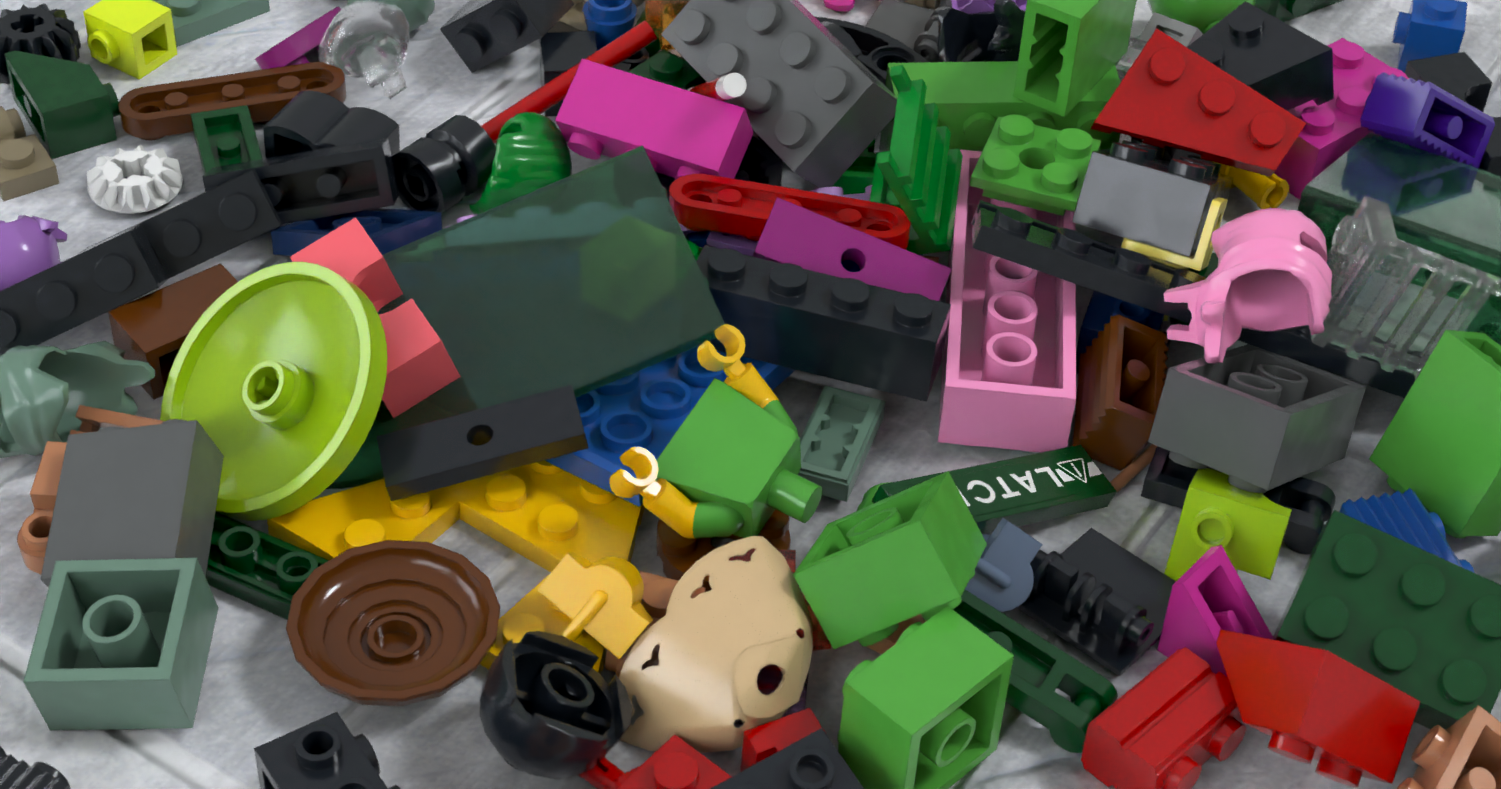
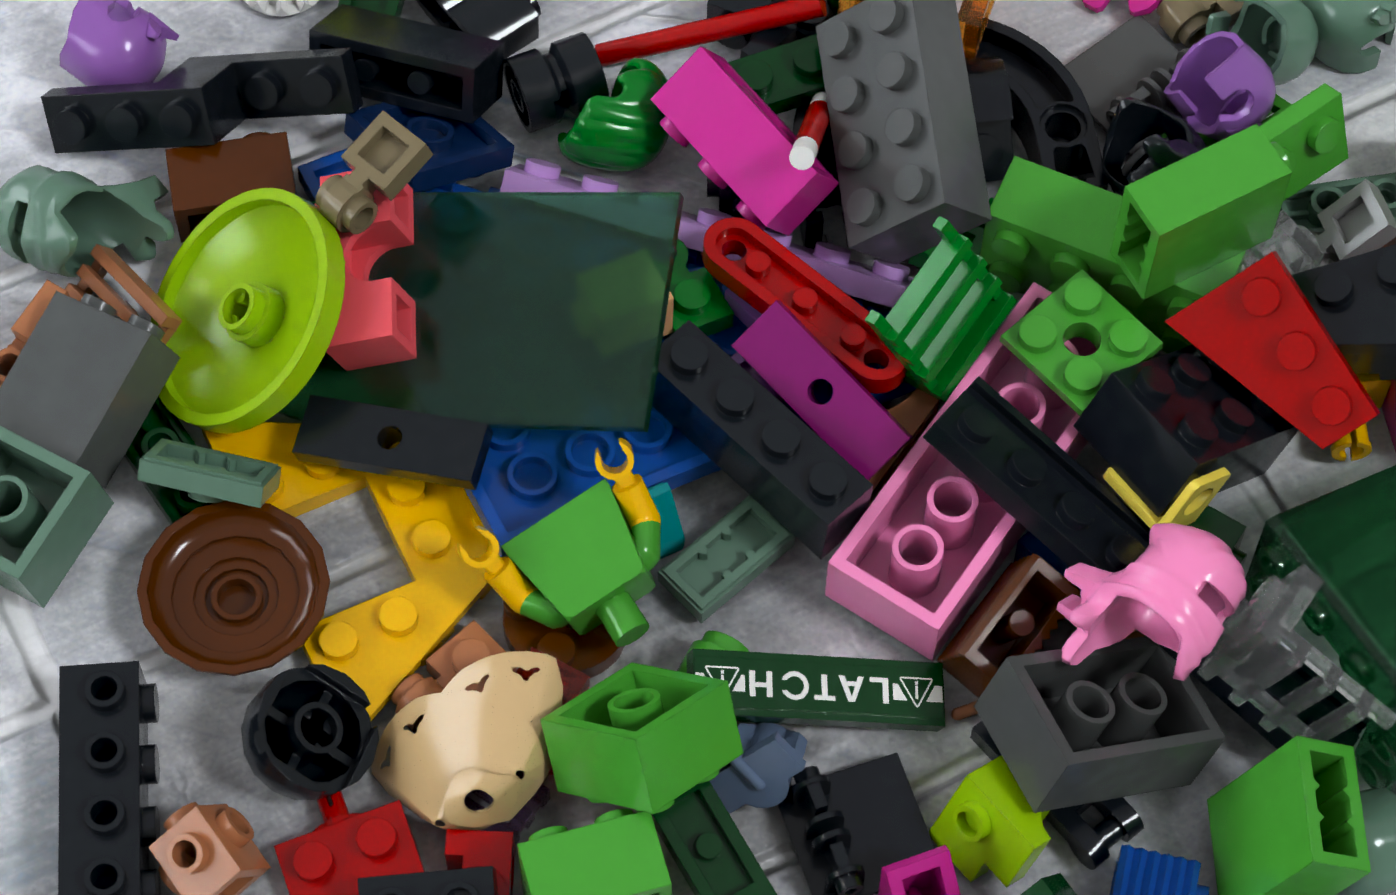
camera: 30 degrees right, 20 degrees up
(313, 535) = (209, 473): none -> sand green plate
(350, 205) = (381, 159): none -> dark tan plate
(599, 599) = (404, 647): yellow piece -> none

